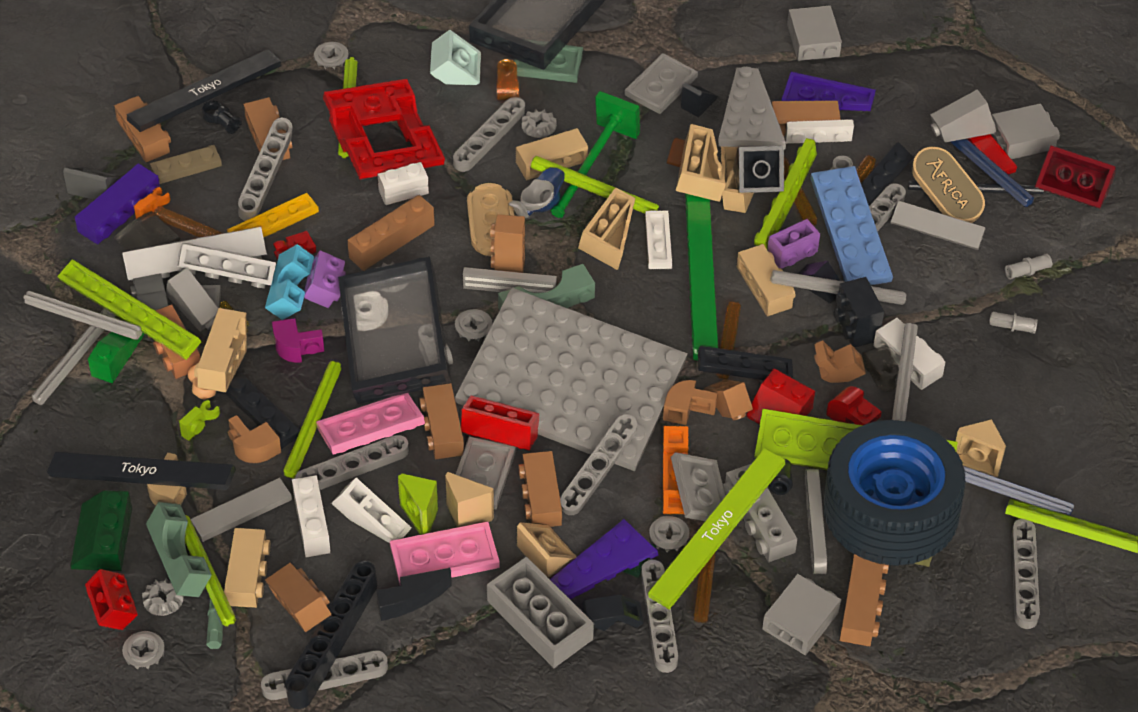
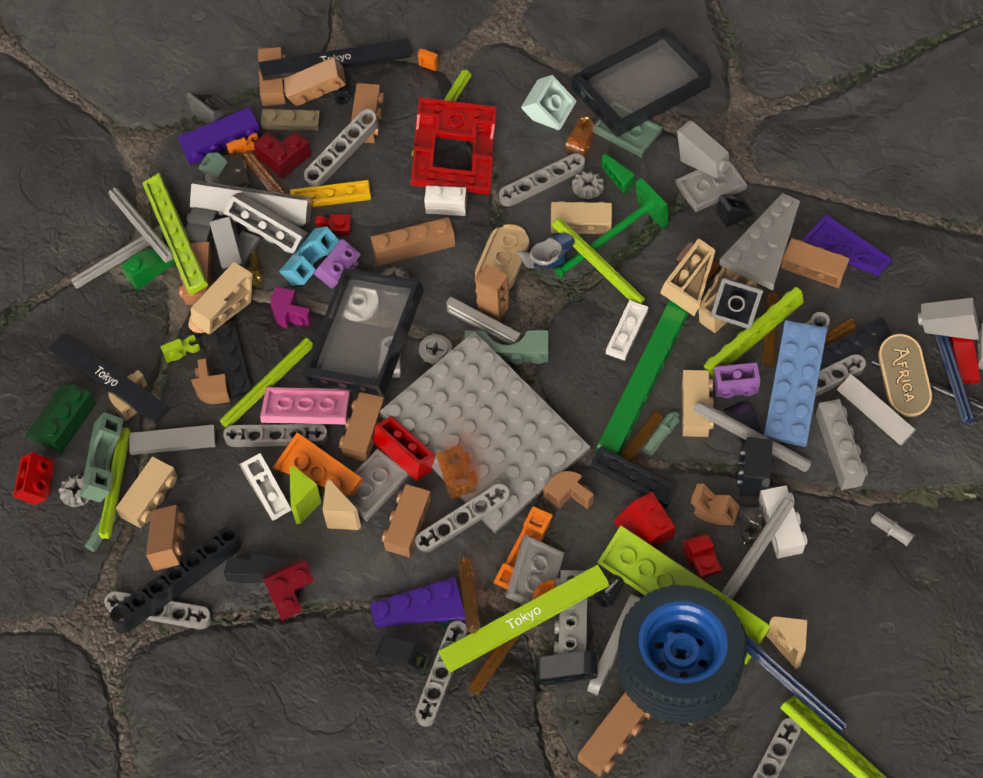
camera: 30 degrees right, 10 degrees up
(128, 230) = (213, 164): none -> sand green slope
(138, 642) = (38, 520): light grey gear -> none
(197, 116) = (314, 81): none -> medium nougat brick
(198, 200) = (282, 156): none -> dark red brick
(304, 60) = (428, 59): none -> orange tile
(311, 516) = (217, 469): white brick -> none
(327, 49) = (453, 55): light grey gear -> none
(394, 463) = (317, 465): none -> orange wing
(453, 596) = (282, 584): none -> dark red brick
(461, 549) = (290, 540): bright pink plate -> none
(540, 612) = (344, 630): light grey brick -> none
(543, 548) = (383, 573): tan slope -> none
(566, 424) = (452, 473): none -> clear orange brick
(568, 103) = (619, 174): none -> green slope
(608, 229) = (588, 306): tan wedge -> none
(640, 52) = (701, 150): none -> light grey slope
(648, 531) = (469, 596): none -> clear orange axle
(679, 531) = (500, 601): light grey gear -> none
(717, 496) = (543, 588): none -> orange tile
(731, 398) = (604, 501): medium nougat slope -> none
(746, 321) = (660, 434): none -> sand green piece
(784, 557) = (567, 668): none -> black beam
(801, 614) = (556, 724): light grey brick -> none
(814, 33) = (868, 184): light grey brick -> none
(819, 131) = (820, 280): white plate -> none
(924, 266) = (840, 444): none -> light grey brick
(1028, 266) = (935, 480): light grey pin -> none

